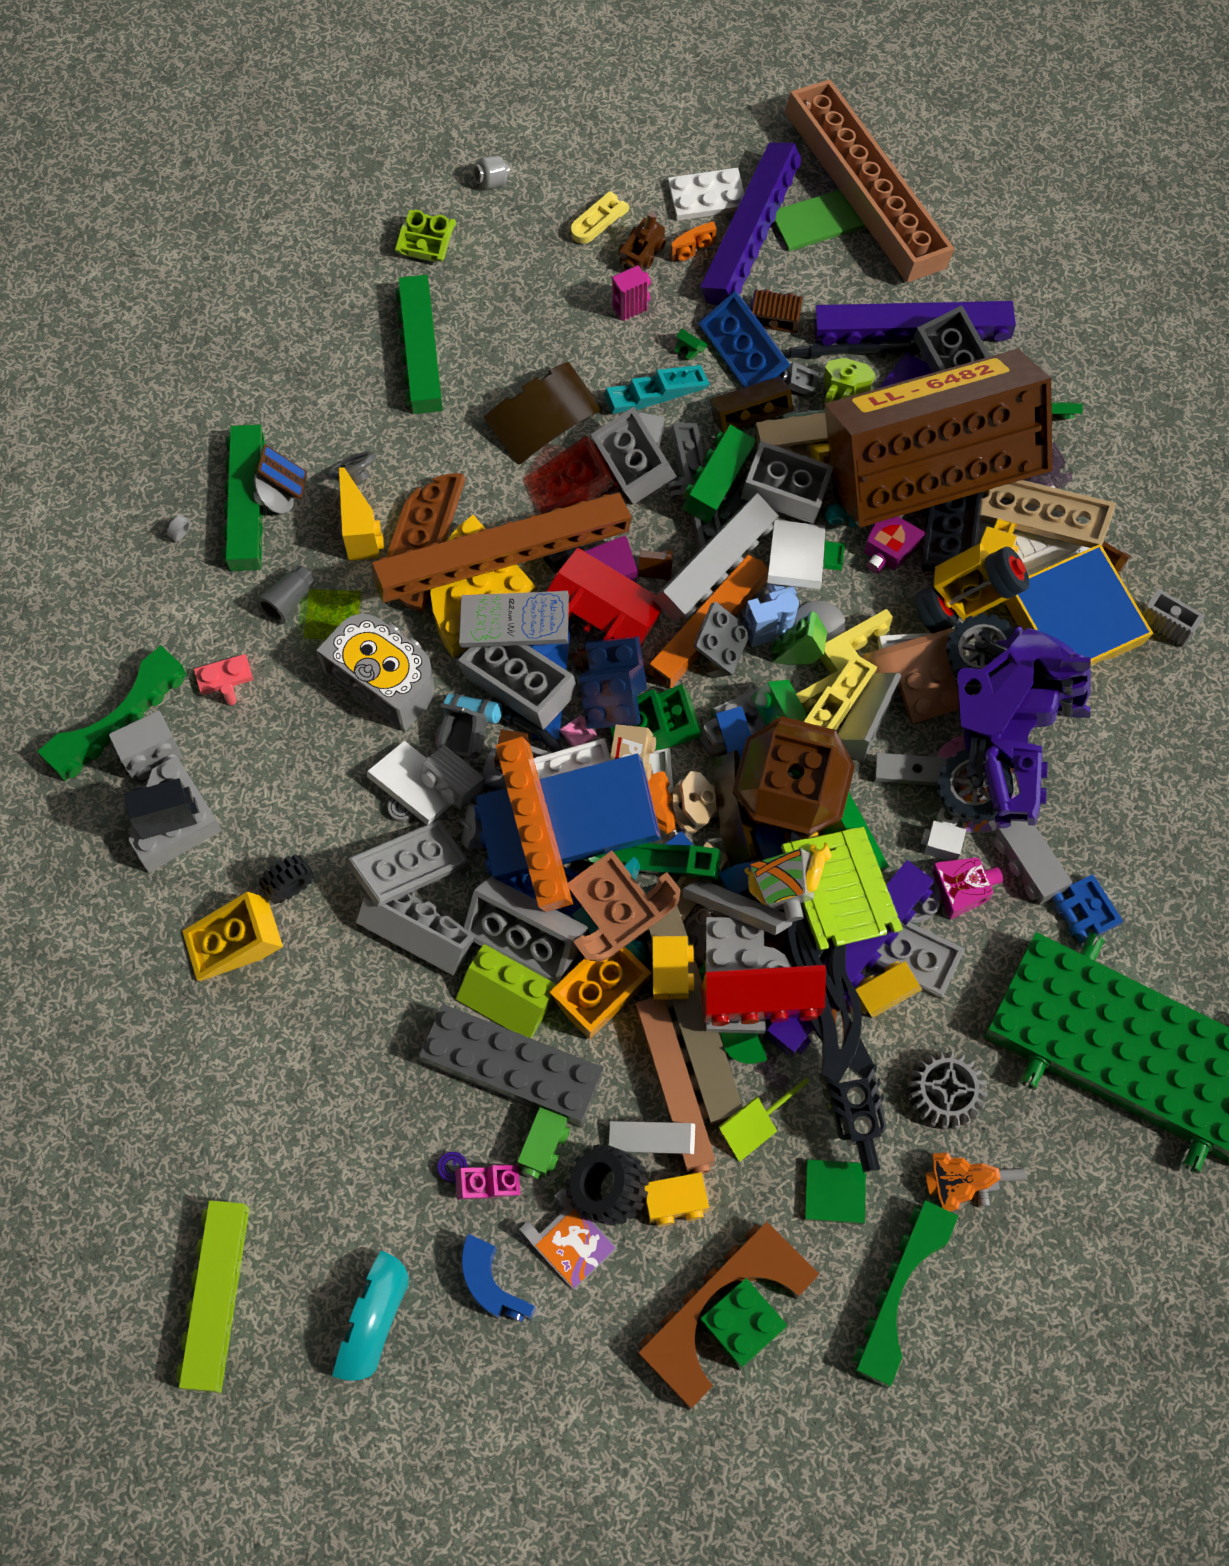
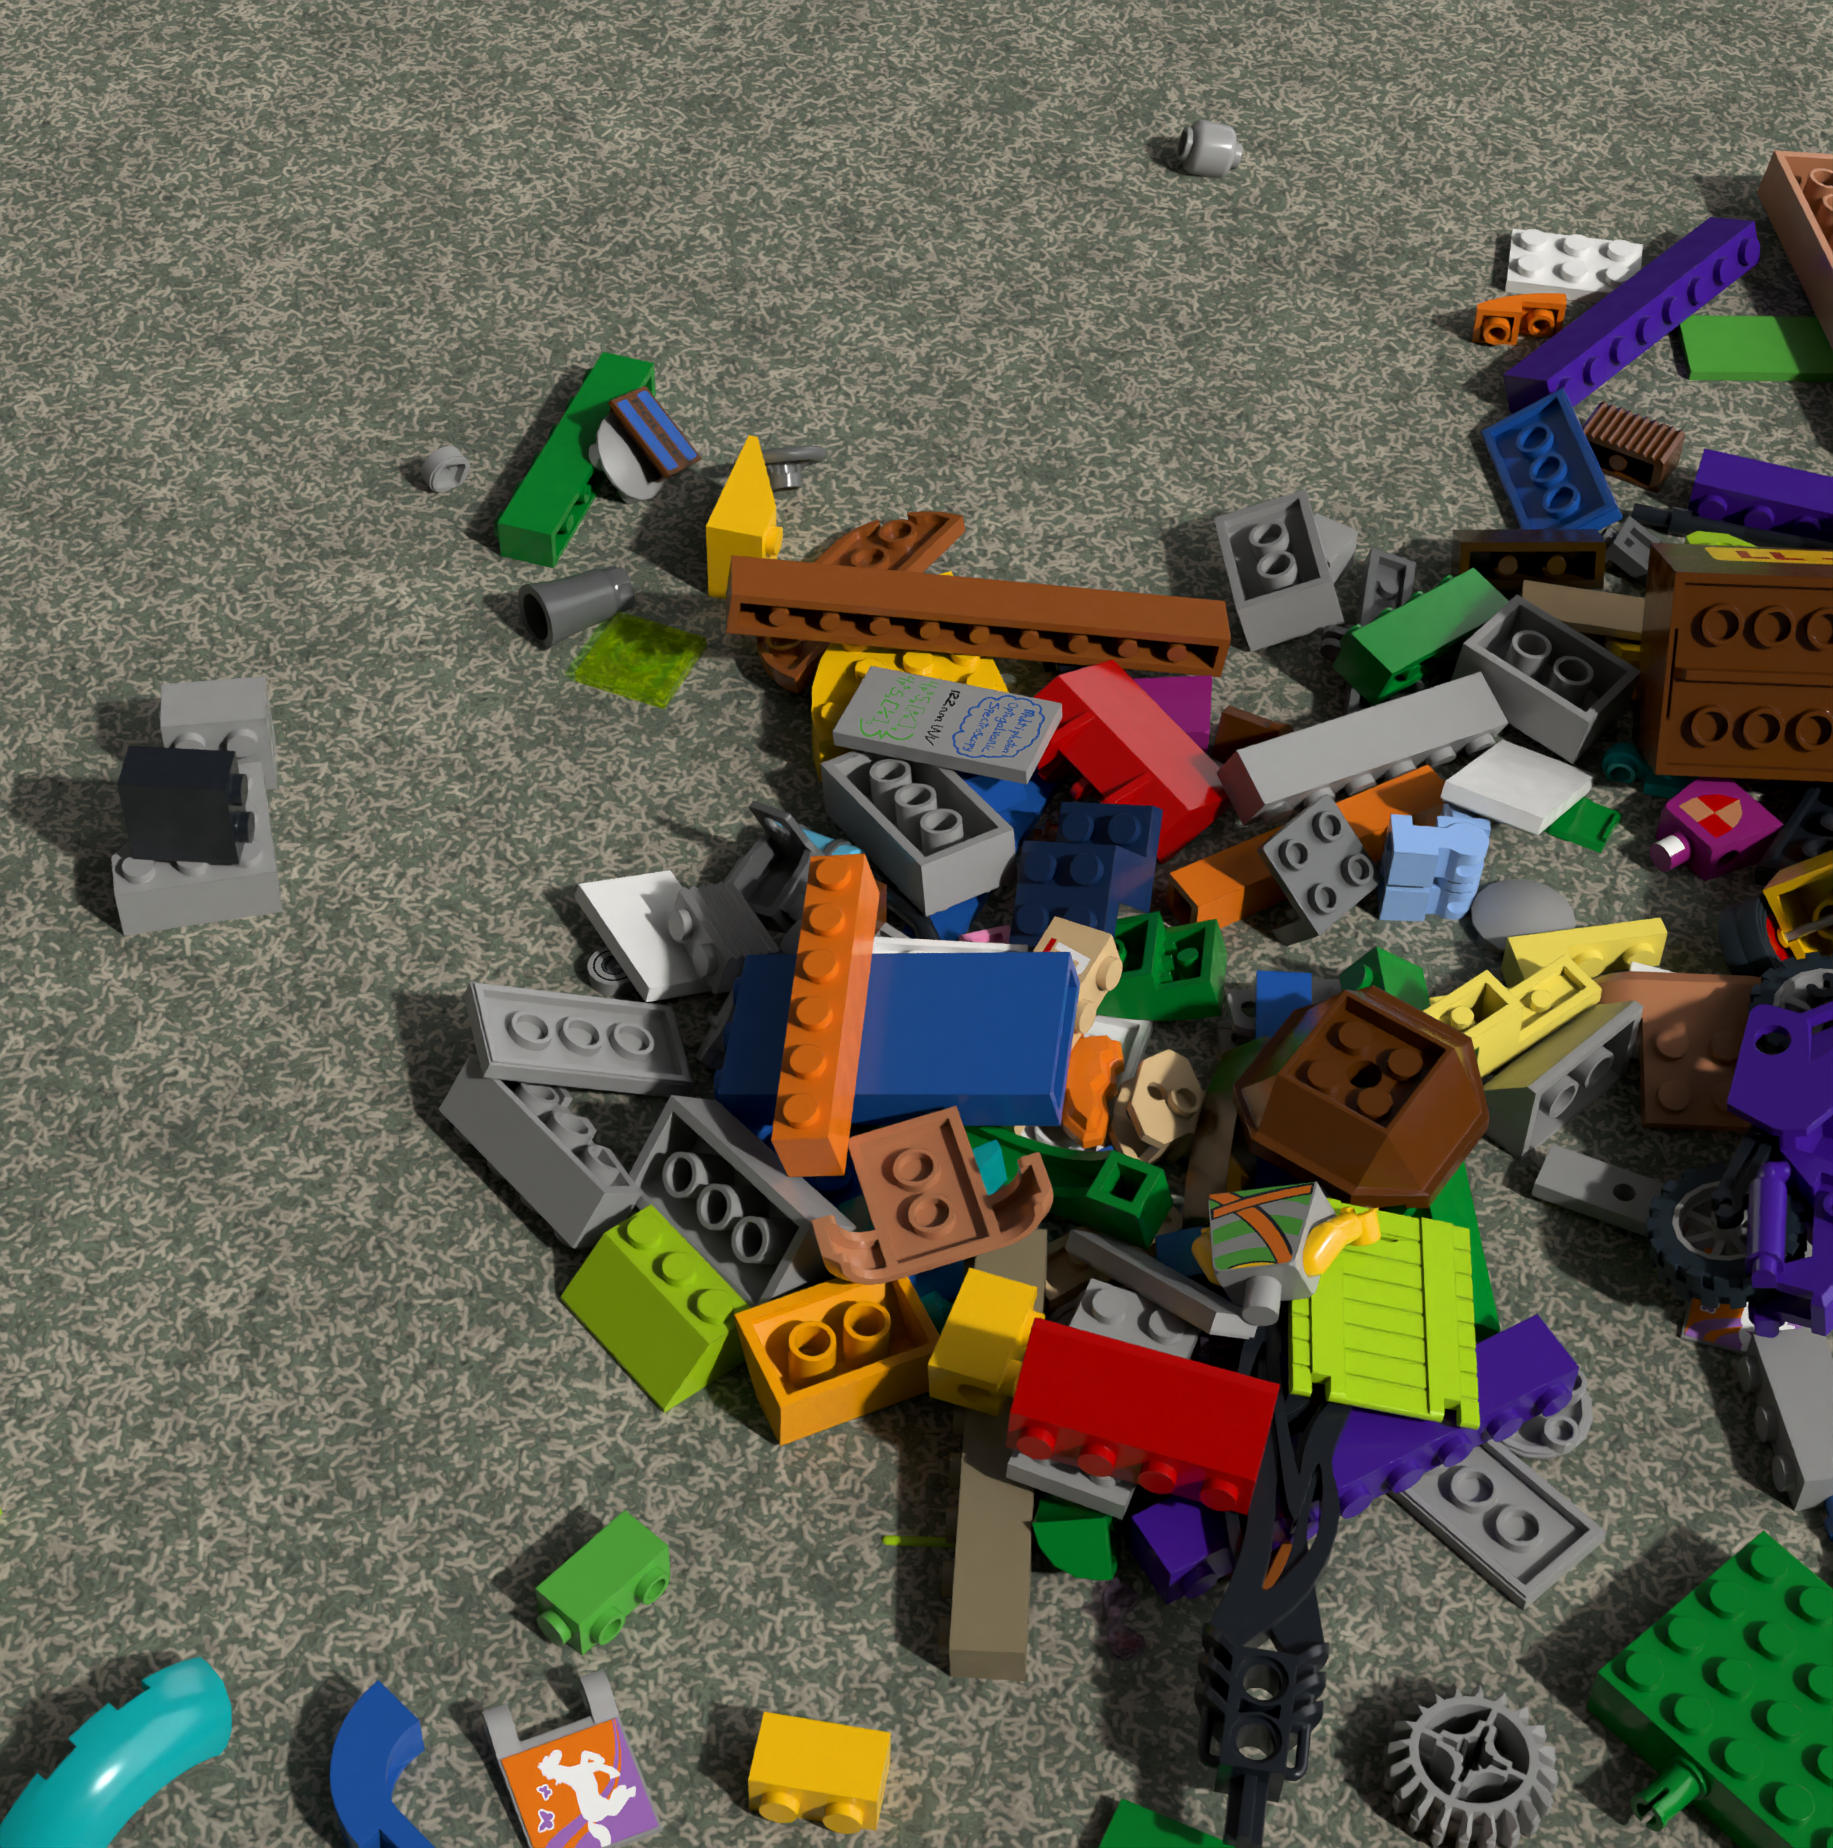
camera: 20 degrees right, 20 degrees down
(72, 750) = (102, 715): green arch -> none
(224, 676) = (408, 692): coral plate -> none
(232, 936) = (213, 1065): yellow slope -> none
(286, 878) = (344, 981): black tyre -> none
(379, 668) = (677, 741): brick -> none
(420, 344) = (975, 337): green brick -> none
(423, 237) = (1057, 200): lime slope -> none
(449, 1163) = (412, 1572): dark purple tile -> none
(487, 1182) = (464, 1620): dark pink slope -> none
(511, 1065) = (610, 1429): dark grey brick -> none
(542, 412) = (1142, 470): dark brown panel -> none
(572, 477) = (1169, 561): clear red slope -> none
(587, 1181) = (690, 1687): black tyre -> none
(598, 218) = (1366, 251): light yellow plate -> none
(630, 292) = (1374, 350): dark pink brick -> none
(643, 243) = (1427, 299): reddish brown brick -> none
(652, 390) = (1379, 500): teal slope -> none
(652, 1137) = (820, 1639): white tile -> none
(674, 1080) = (909, 1573): nougat brick -> none
(693, 343) = (1455, 449): green tile -> none
(752, 1124) = (1027, 1693): lime piece -> none
(801, 643) = (1474, 918): bright green slope -> none
(888, 989) = (1412, 1543): yellow brick -> none
(943, 838) = (1633, 1327): white brick -> none
(965, 884) = (1648, 1416): dark pink torso -> none

